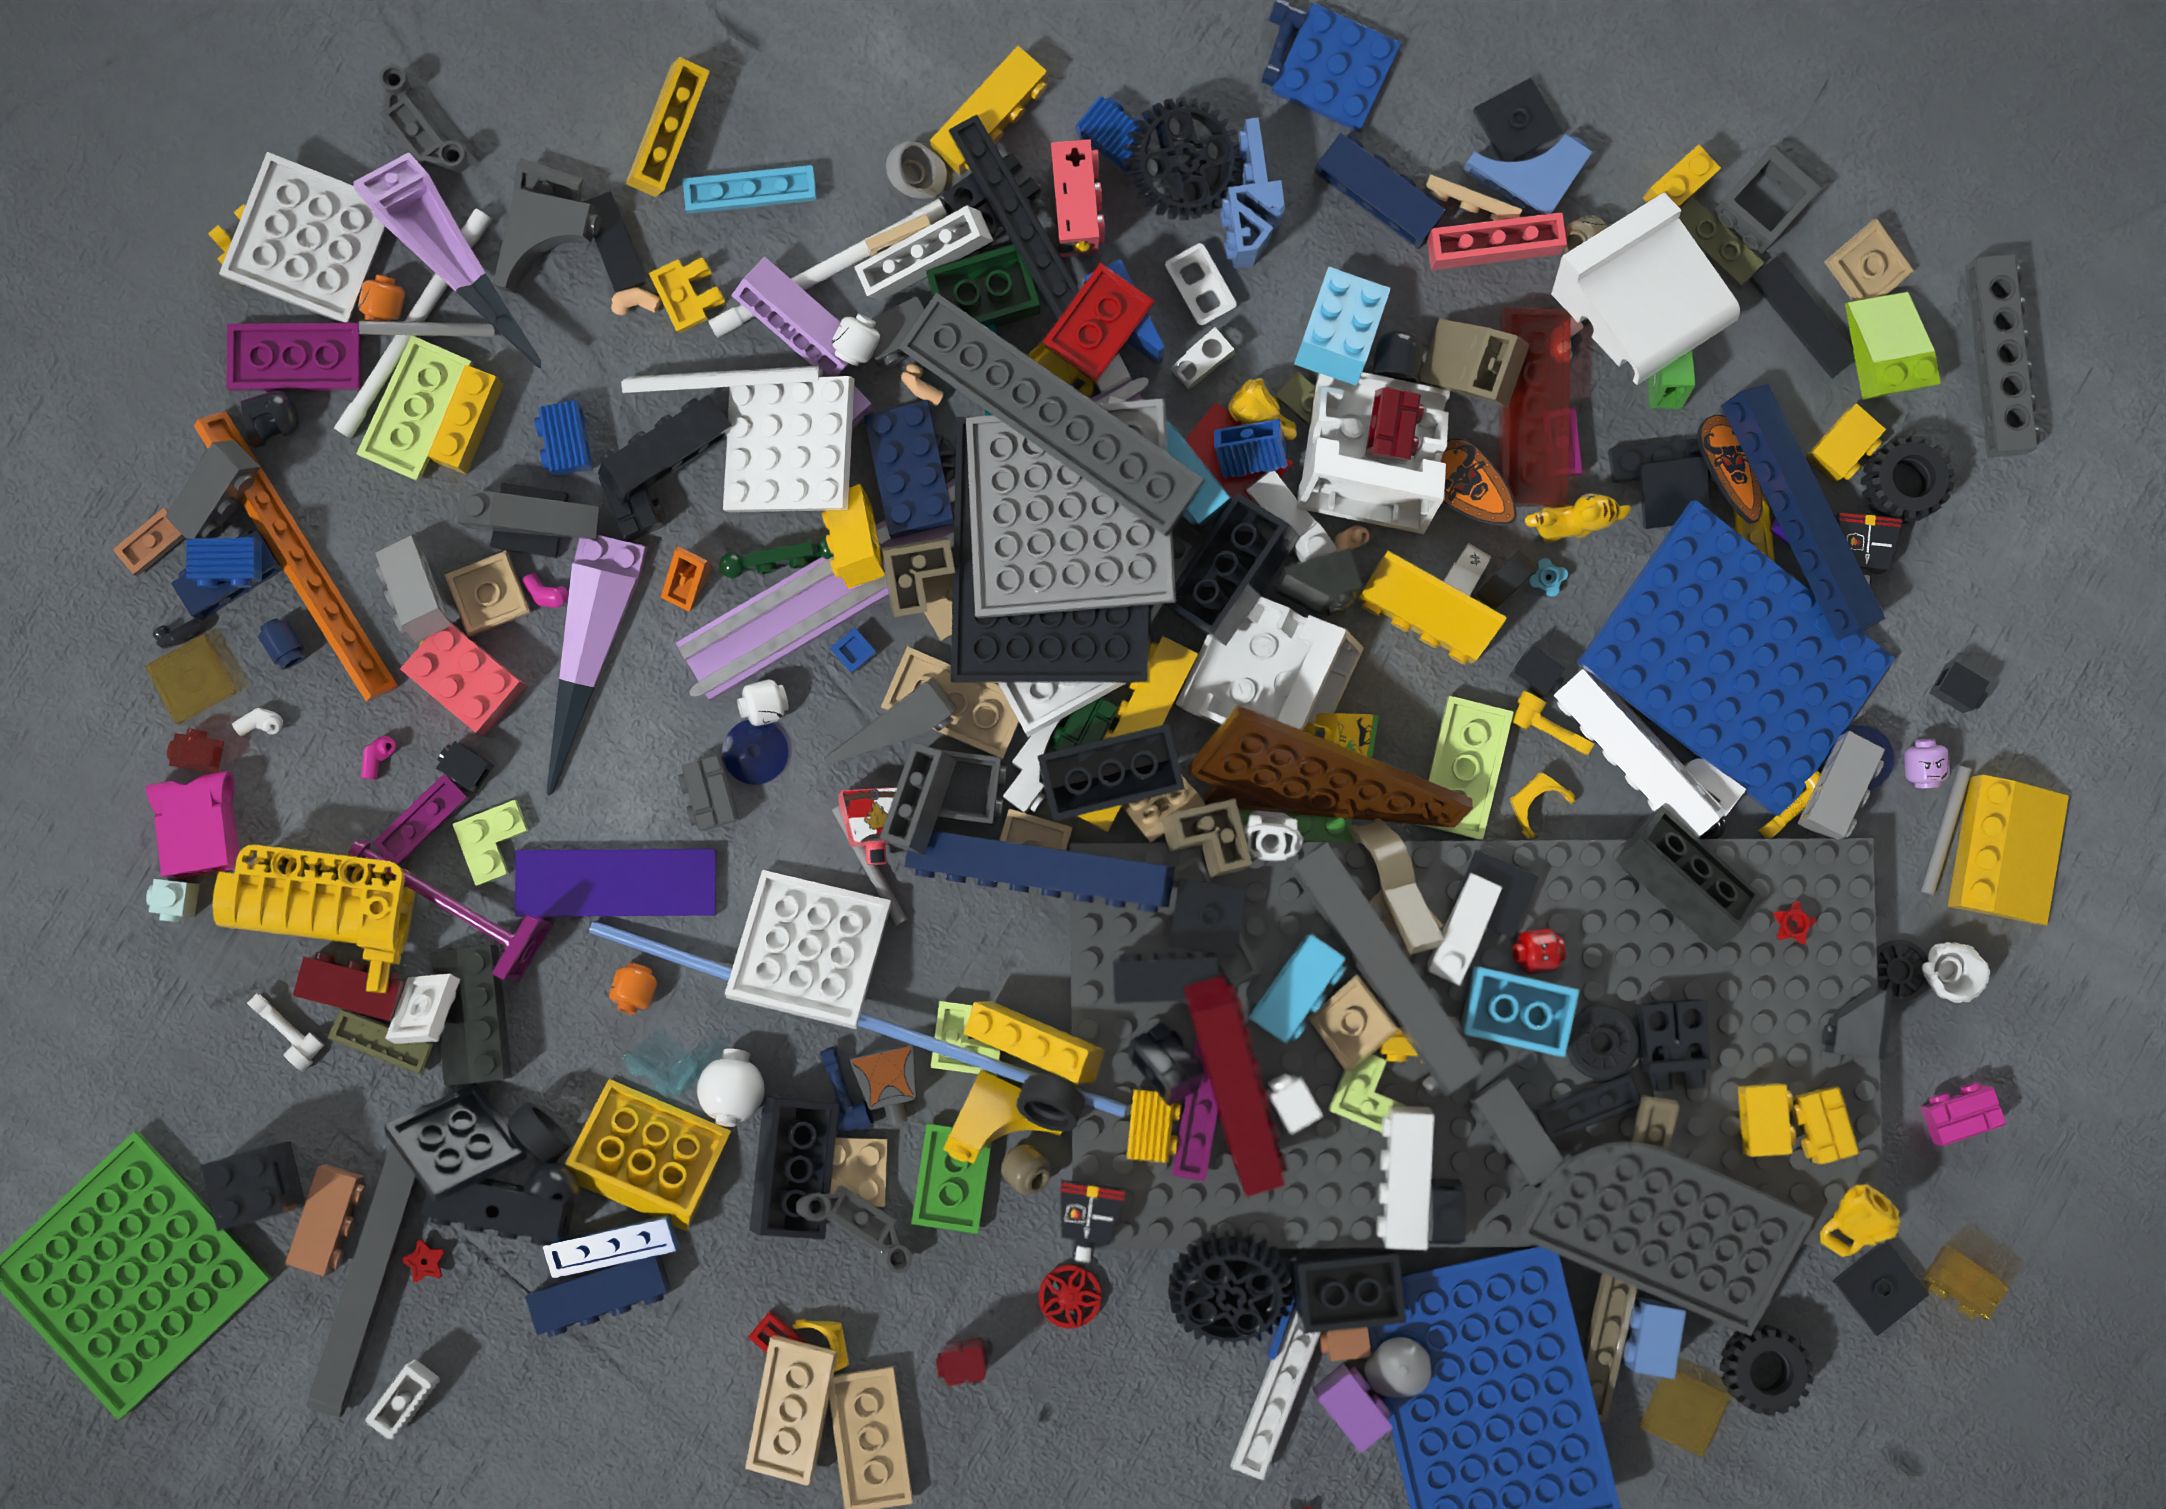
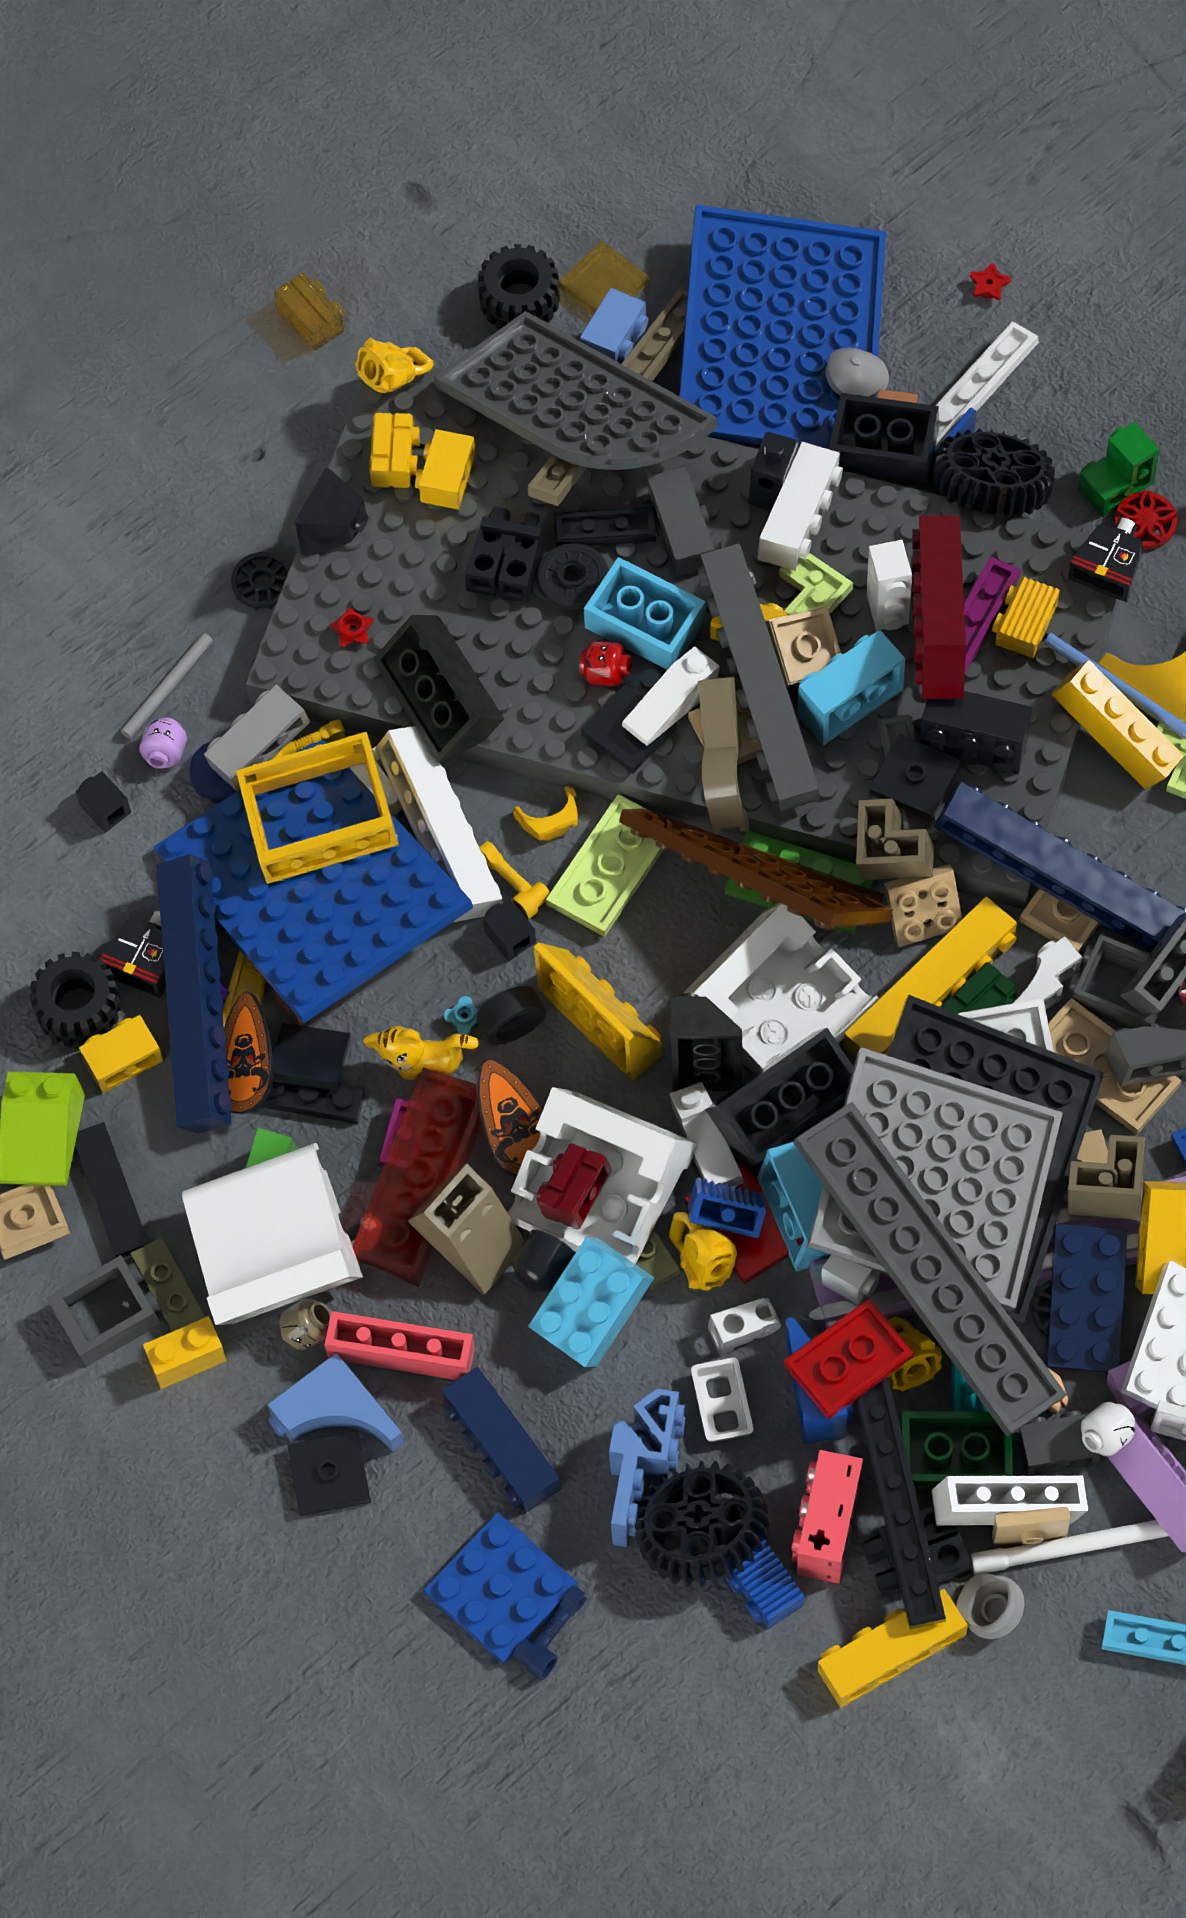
camera: 155 degrees left, 20 degrees down
(1026, 1169) = (1156, 629): dark tan head -> none
(1050, 1102) = (1118, 661): black tyre -> none
(1108, 1335) = (1124, 470): none -> green brick
(1111, 772) = (969, 934): black slope -> none
(1166, 1063) = (996, 657): black brick -> none
(1272, 836) = (829, 834): white piece -> none
(1347, 730) = (723, 916): yellow torso -> none
(1350, 1406) = (910, 352): medium lavender brick -> none
(1351, 538) = (655, 1108): light nougat arm -> none
(1467, 569) = (550, 1039): white leg -> none
(1471, 199) = (406, 1403): tan tile -> none
(1797, 762) = (324, 848): none -> yellow window
(1880, 1288) = (386, 322): black plate -> none
(1956, 972) = (212, 557): white hair -> none
(1962, 1114) = (254, 443): dark pink brick -> none
(2008, 849) = (117, 650): yellow slope -> none

